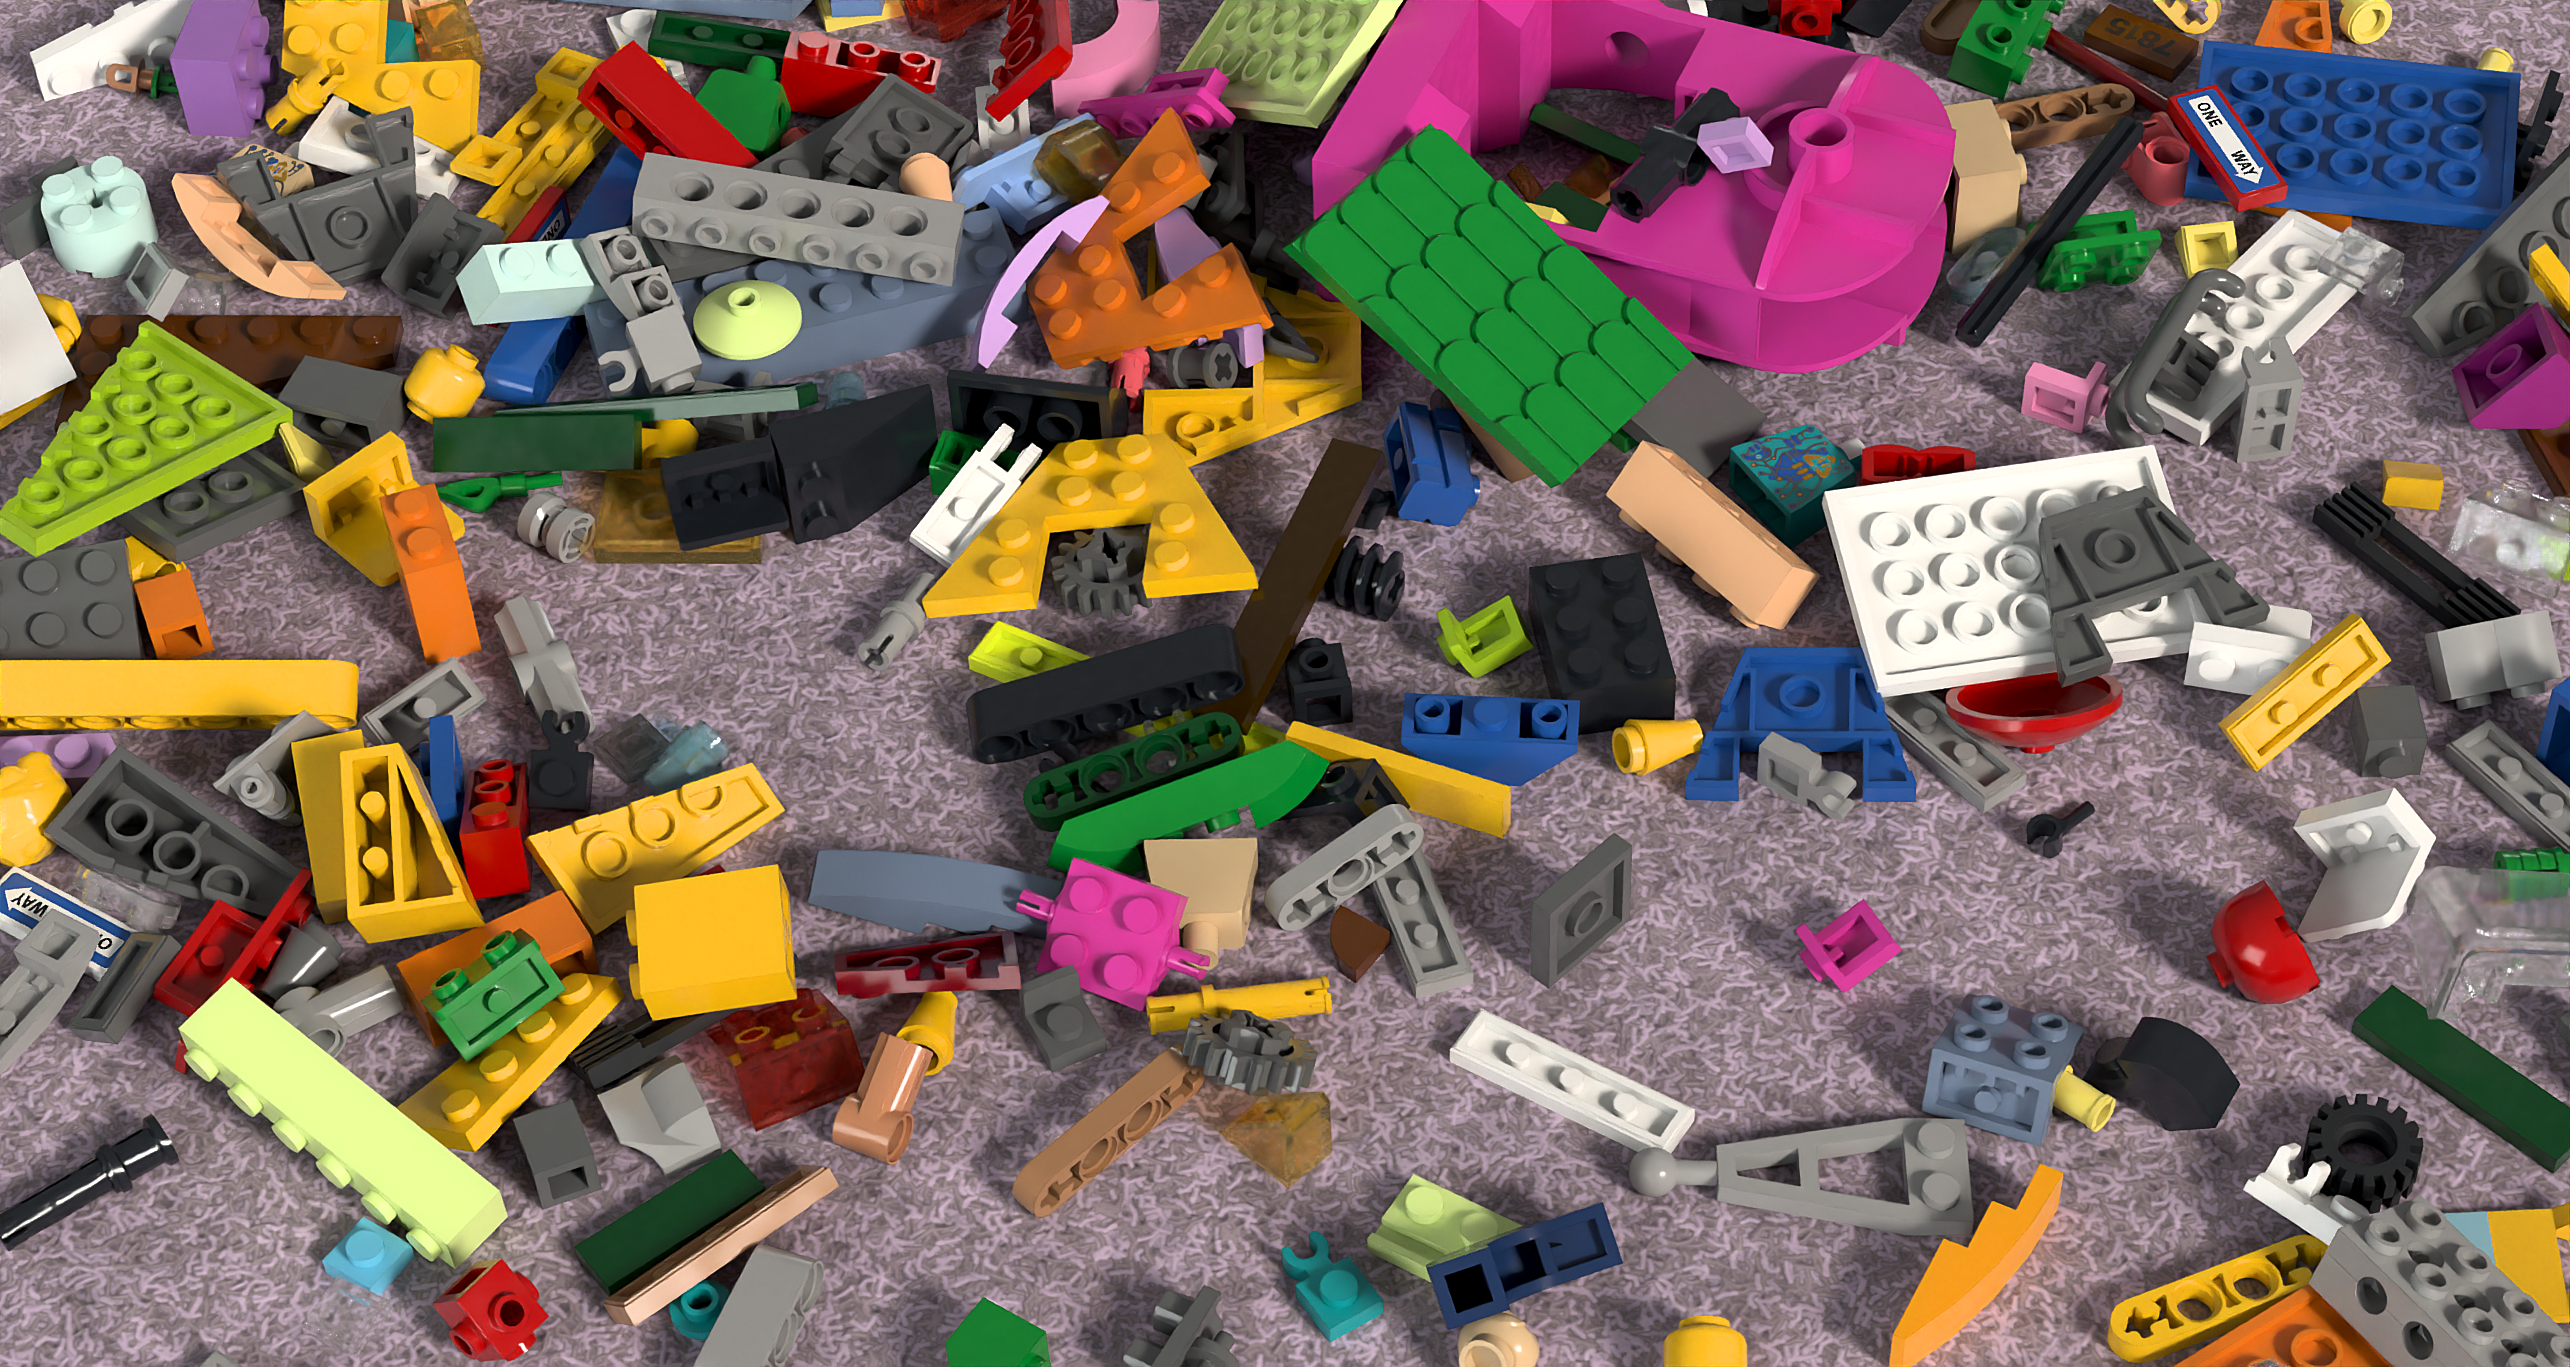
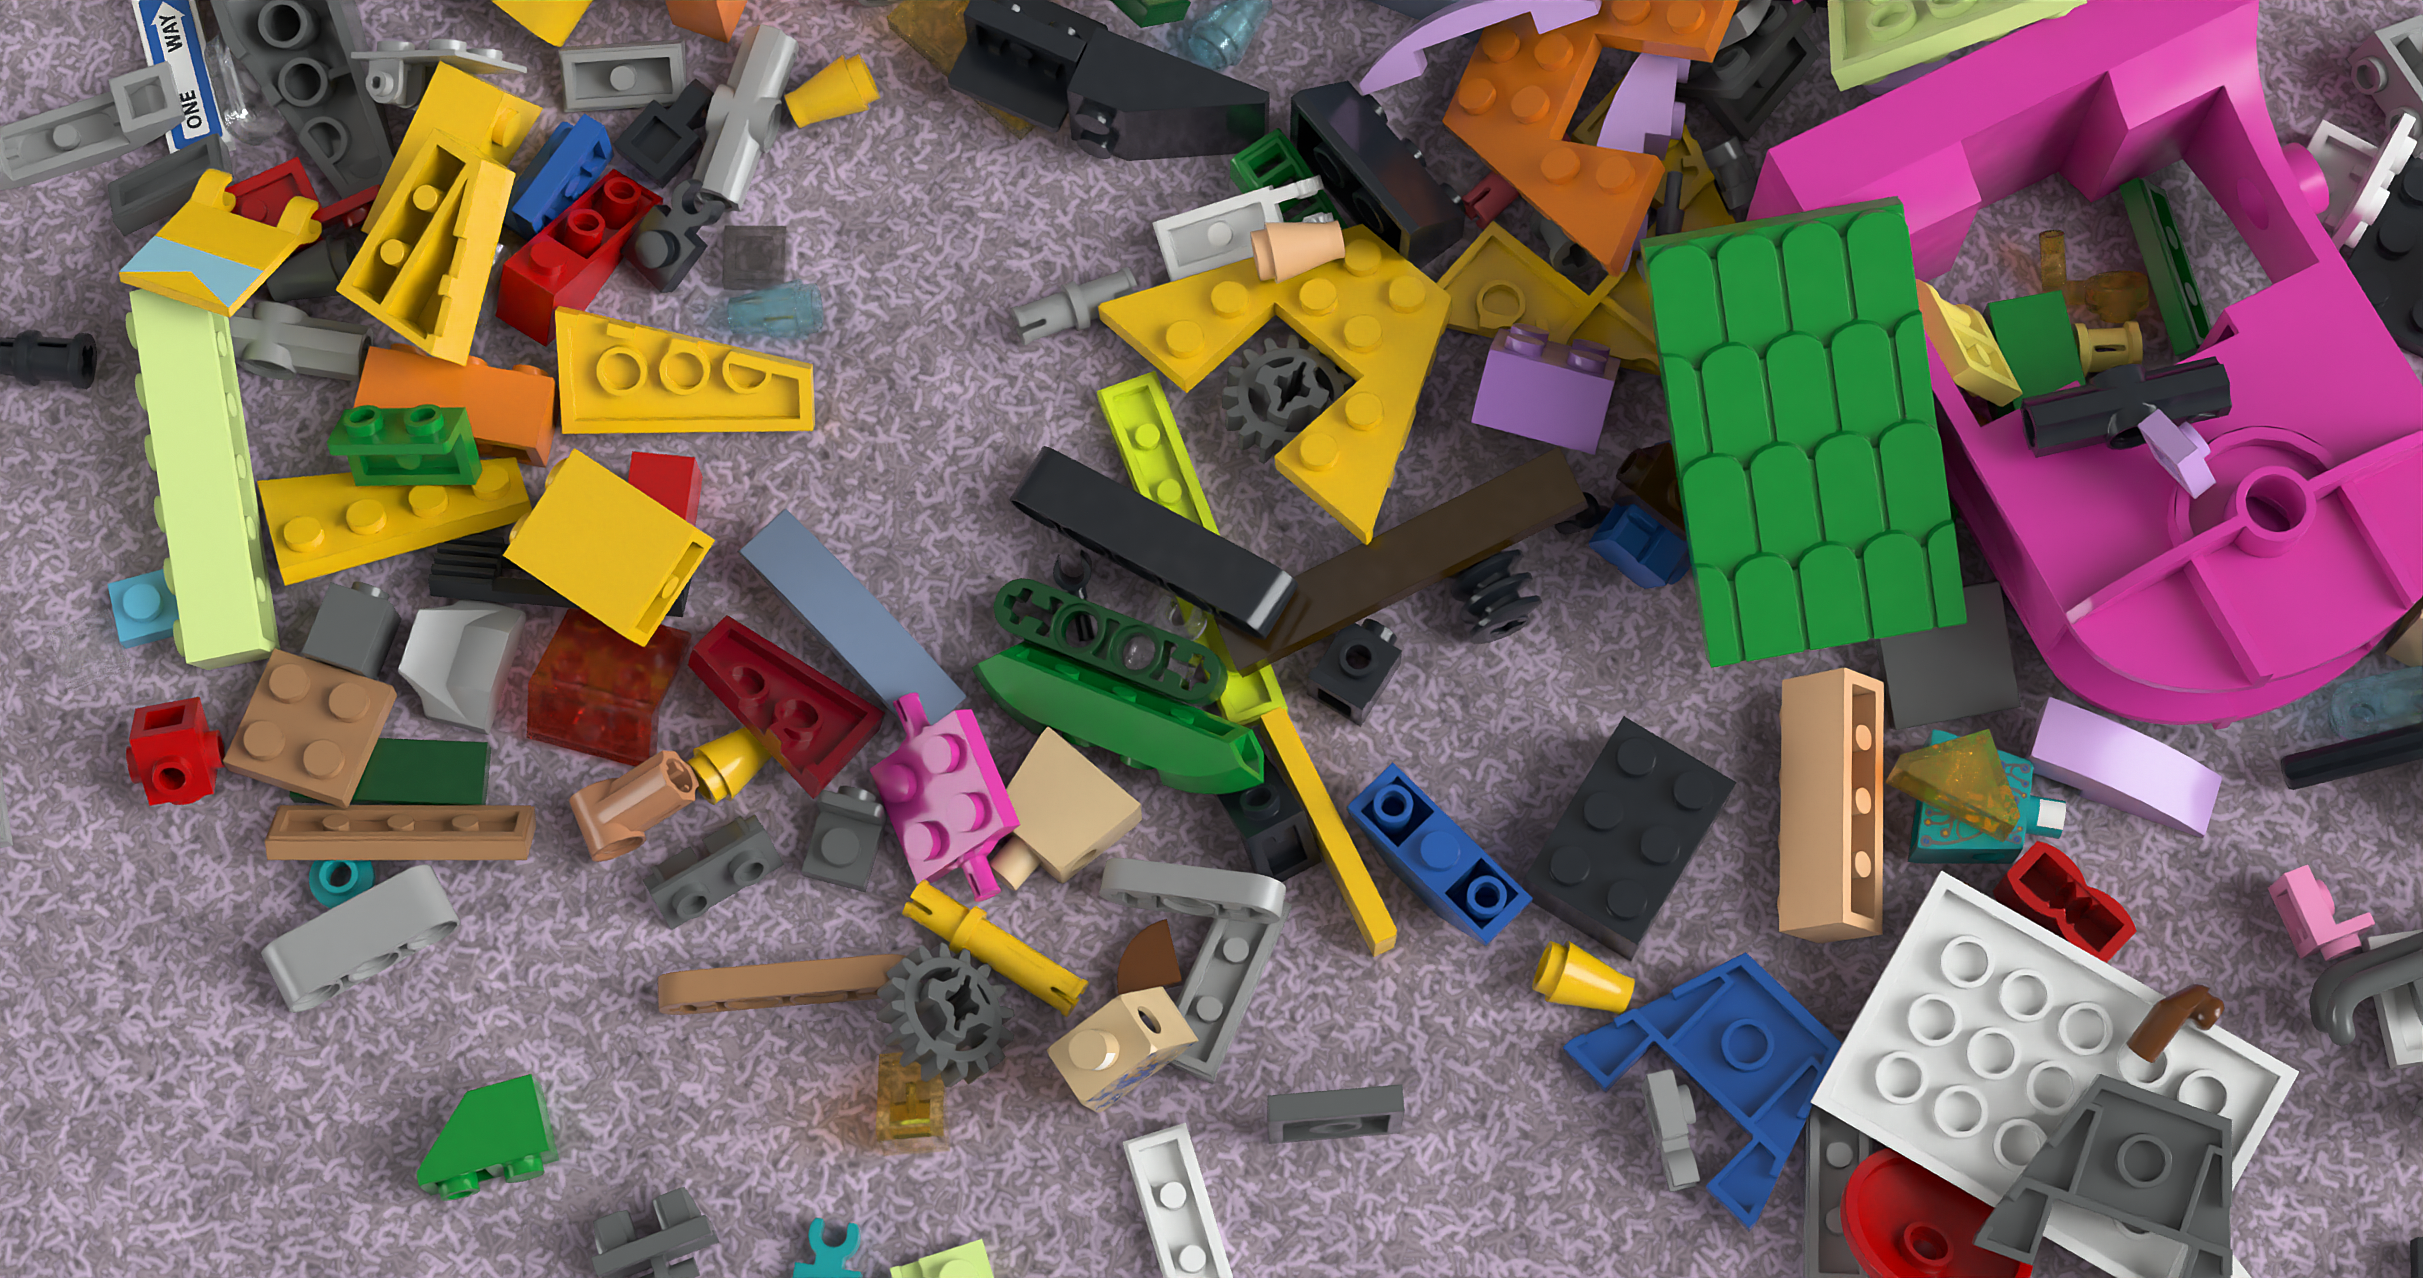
camera: 40 degrees right, 25 degrees up
(227, 962) = (215, 255): none -> yellow flag
(496, 721) = (664, 139): none -> black plate
(584, 1228) = (310, 728): none -> medium nougat plate
(597, 615) = (834, 92): none -> yellow cone
(991, 1094) = (738, 858): none -> dark grey hinge
(1028, 472) = (1294, 248): none -> light nougat cone
(1283, 434) = (1546, 388): none -> medium lavender brick
(1393, 977) = (1117, 1051): none -> tan torso
(1422, 428) = (1651, 483): none -> dark brown bracket
(1484, 638) = (1538, 741): lime bracket -> none
(1784, 449) = (1962, 781): none -> clear yellow slope
(1863, 401) = (2122, 768): none -> lavender slope
(2047, 463) = (2169, 1016): none -> reddish brown arm

